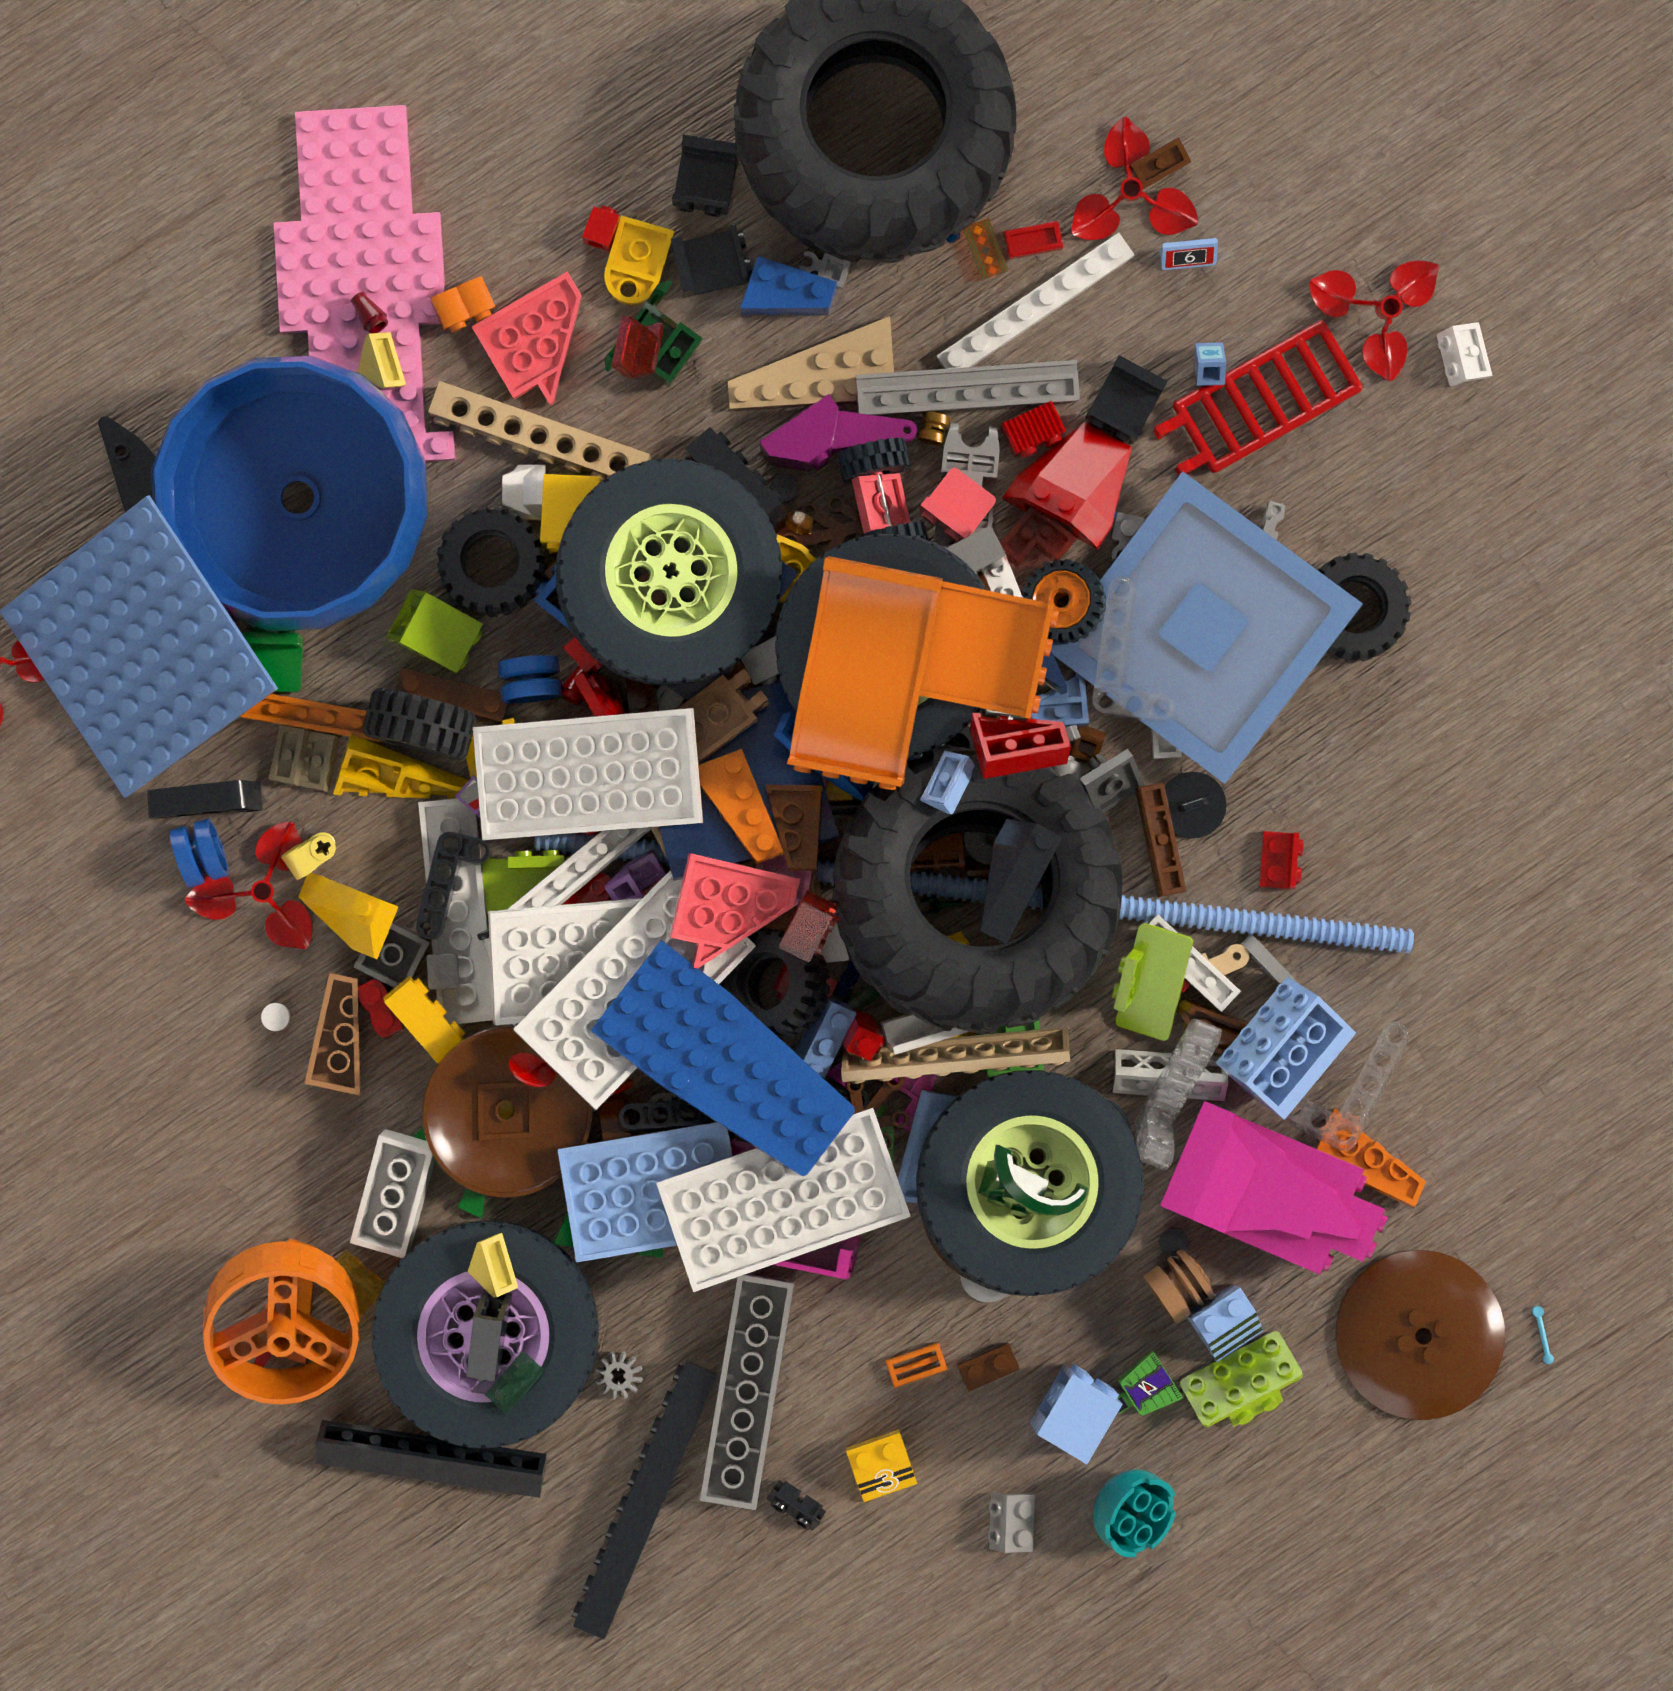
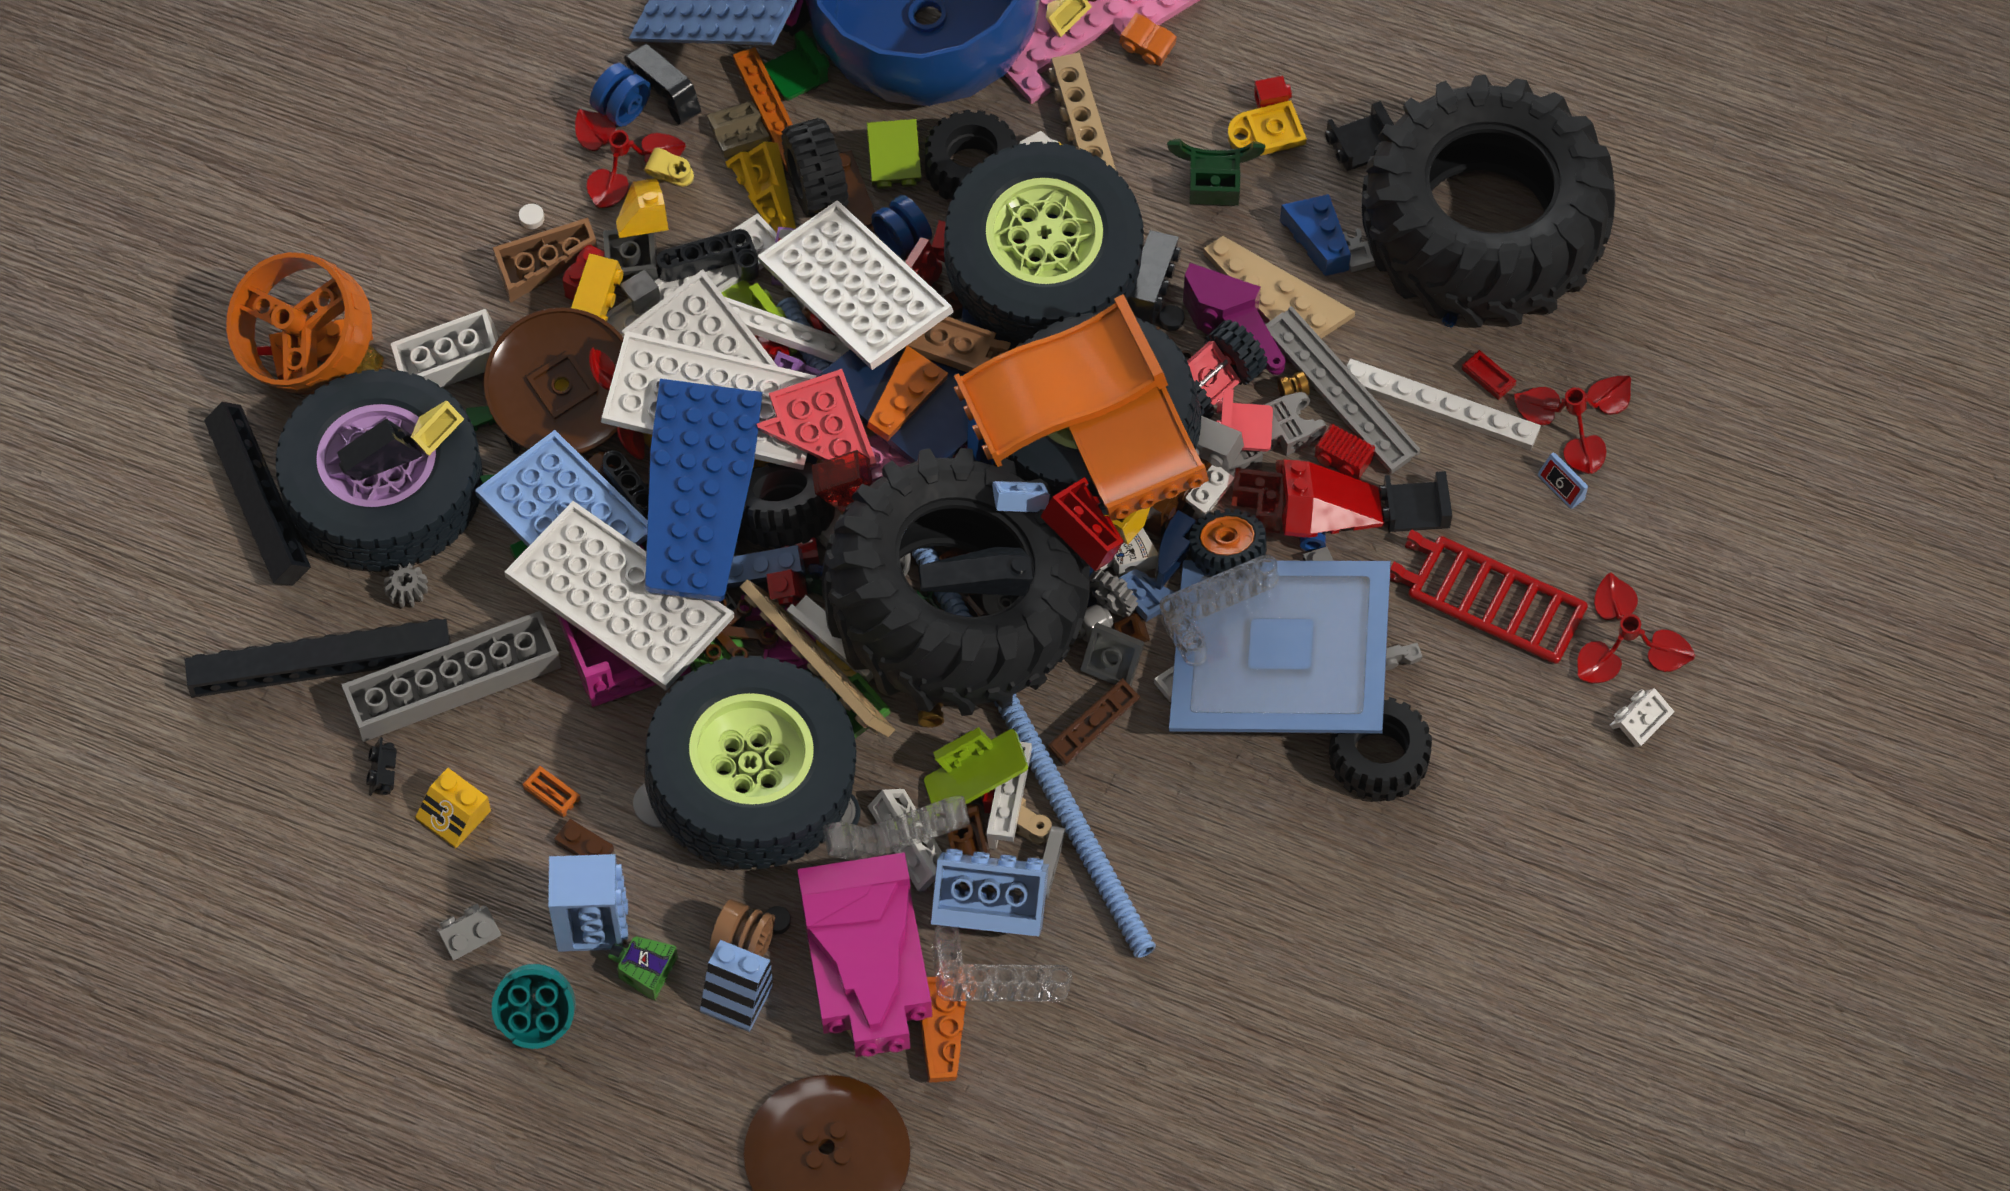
camera: 65 degrees right, 25 degrees down
(515, 1382) = (353, 492): clear green tile -> none
(533, 337) = (1158, 97): coral wing -> none
(637, 348) = (1198, 153): clear red panel -> none
(711, 262) = (1300, 175): black panel -> none
(798, 822) = (922, 432): reddish brown wing -> none
(985, 249) = (1456, 347): clear orange tile -> none
(1022, 1190) = (739, 738): dark green piece -> none
(1160, 163) = (1615, 422): reddish brown plate -> none
(1195, 804) = (1139, 733): black shield -> none
(1209, 363) = (1489, 539): medium blue brick -> none
(1242, 1382) = (693, 1036): lime bracket -> none
(1280, 860) = (1140, 819): red bracket -> none

